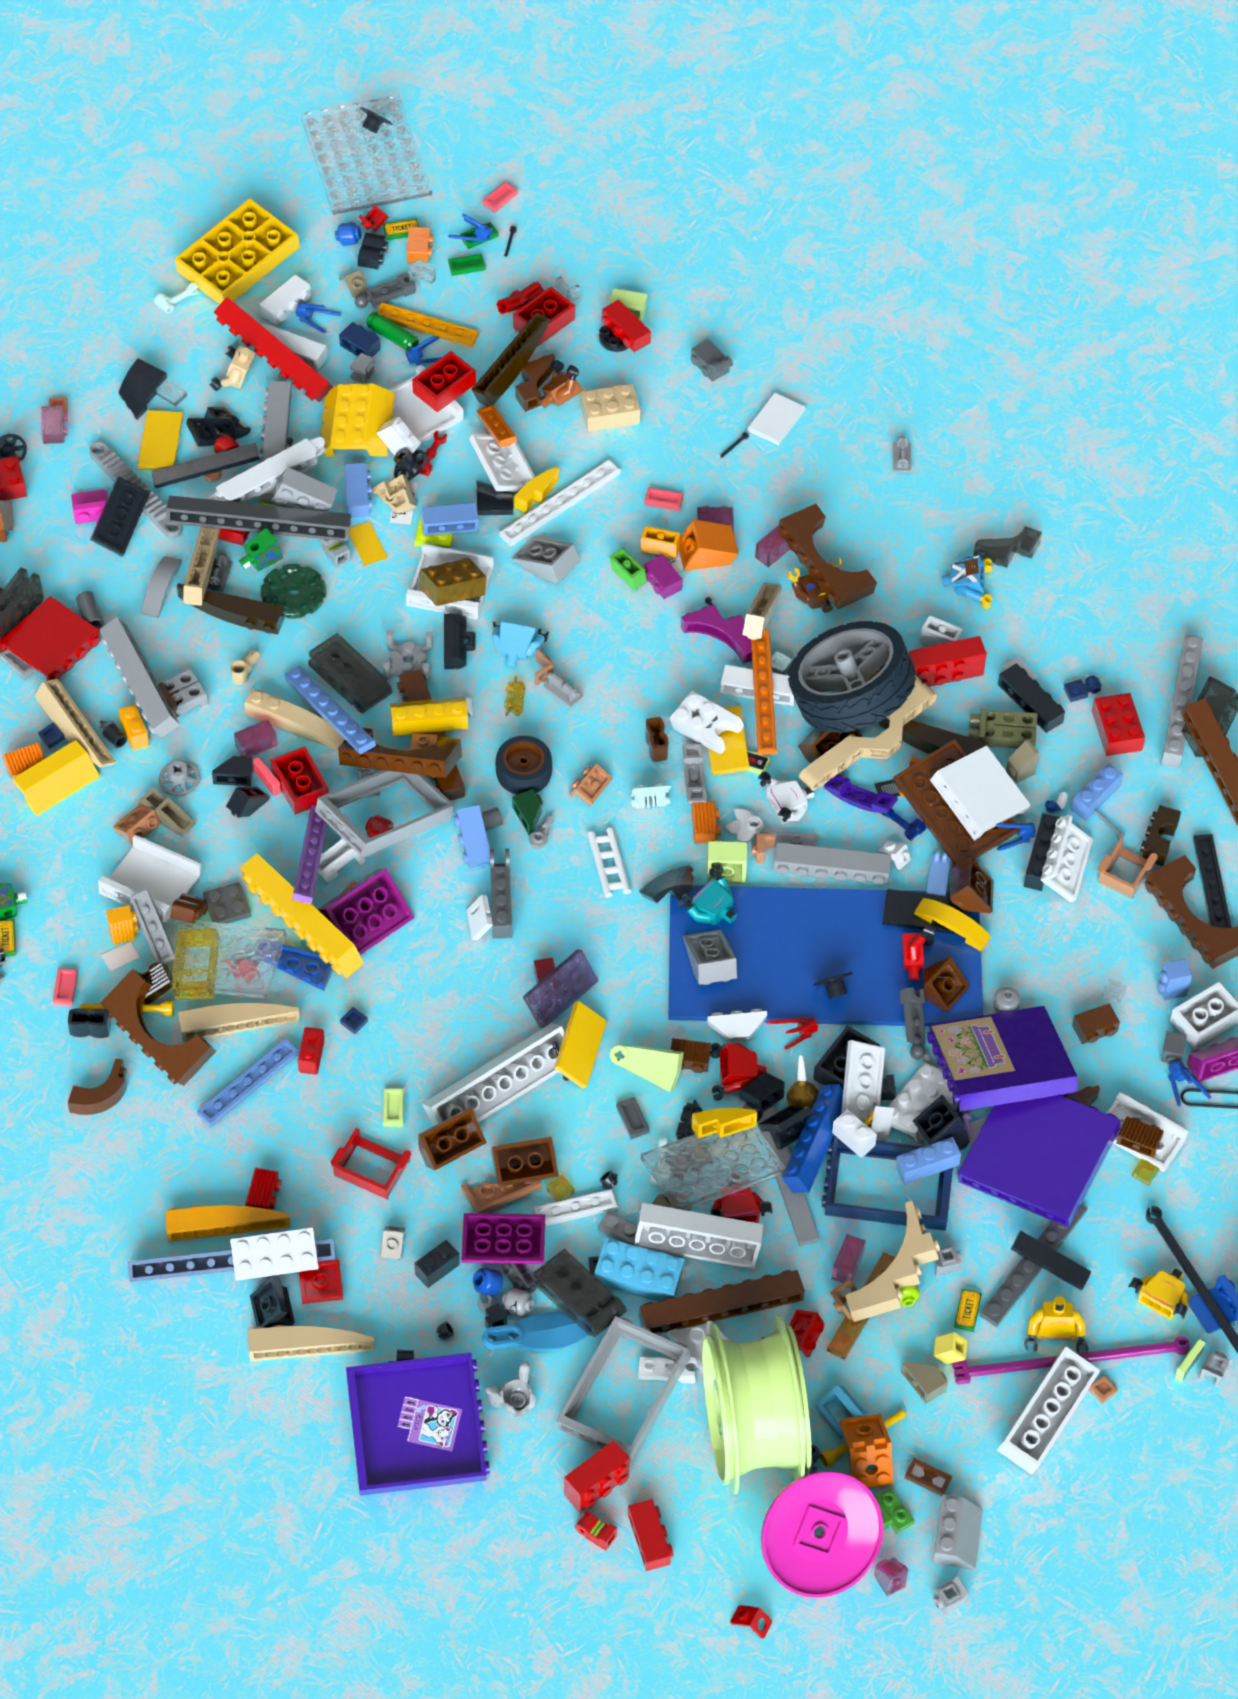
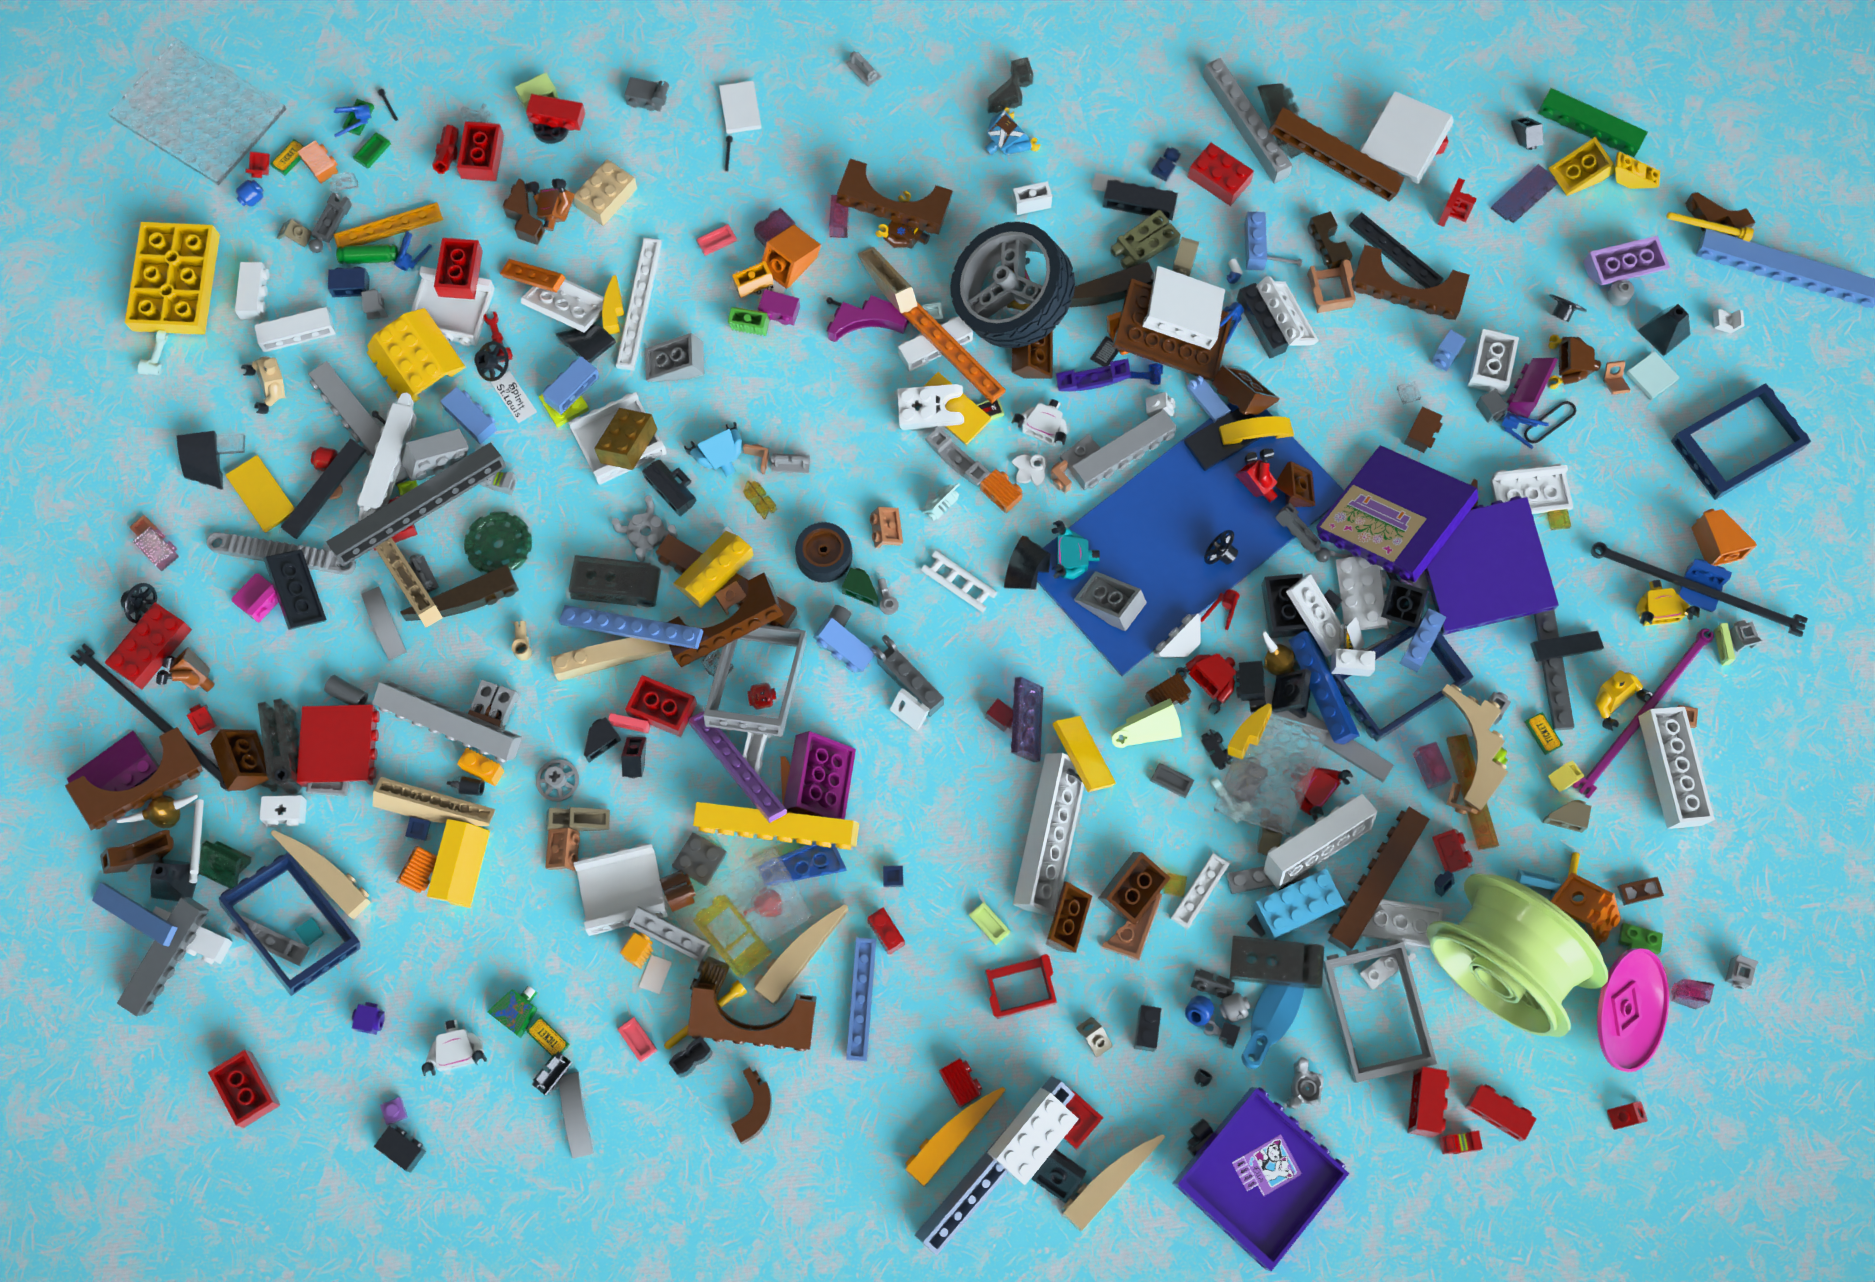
camera: 40 degrees left, 15 degrees up
(216, 423) = (296, 447): black slope -> none
(255, 739) = (590, 698): clear pink brick -> none
(261, 551) = (442, 530): green torso -> none
(272, 349) = (285, 343): brick -> none
(306, 311) = (277, 287): blue plant -> none
(367, 543) = (519, 455): yellow sticker -> none
(372, 251) = (283, 193): black brick -> none
(373, 120) = (180, 77): black wheel -> none
(396, 494) = (503, 394): tan slope -> none
(398, 436) = (463, 344): white brick -> none
(499, 197) = (344, 71): coral tile -> none
(503, 1238) = (1184, 969): magenta slope -> none
(510, 362) = (494, 210): dark brown slope -> none
(609, 1179) = (1204, 847): black plate -> none
(656, 739) = (900, 448): reddish brown brick -> none
(731, 857) = (1054, 507): yellowish green brick -> none
(879, 747) = (1059, 340): tan beam -> none
(949, 661) = (1063, 211): red brick -> none
(957, 1533) = (1698, 919): light grey slope -> none
(1006, 1000) = (1349, 462): light grey head -> none
(1140, 1136) = (1542, 495): reddish brown brick -> none

